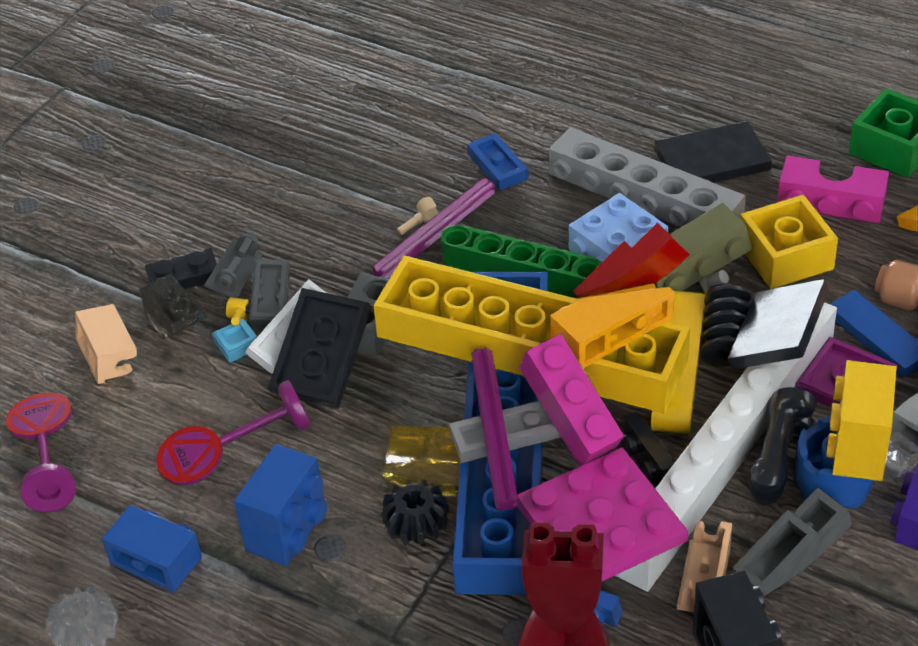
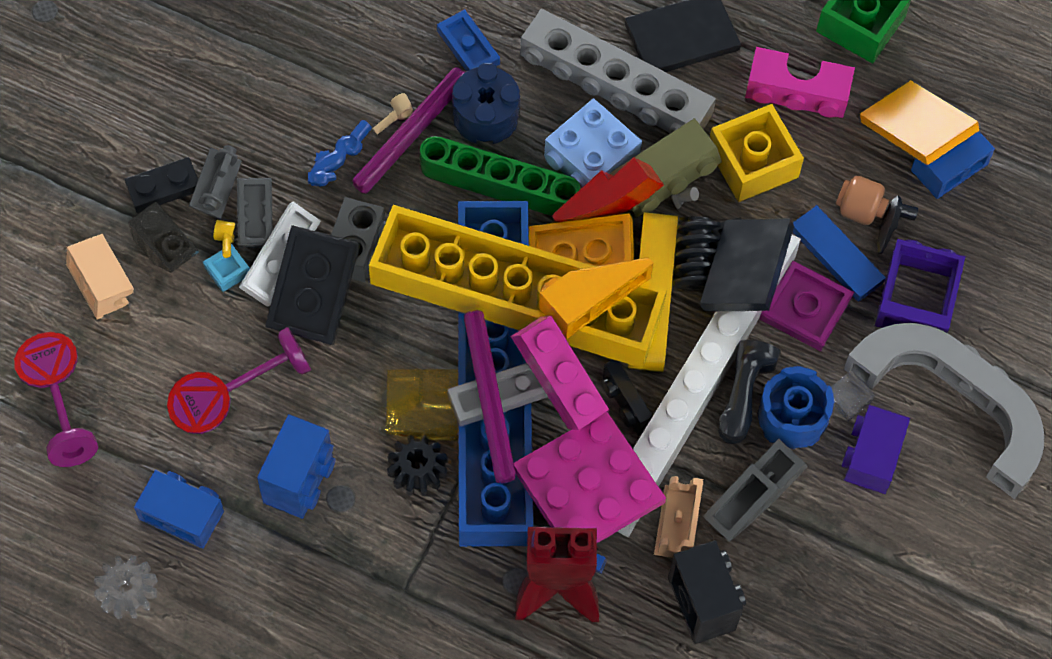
camera: 10 degrees left, 20 degrees up
(349, 255) = (328, 162): none -> blue animal
(511, 203) = (486, 104): none -> dark blue brick
(862, 420) = (820, 385): yellow brick -> none

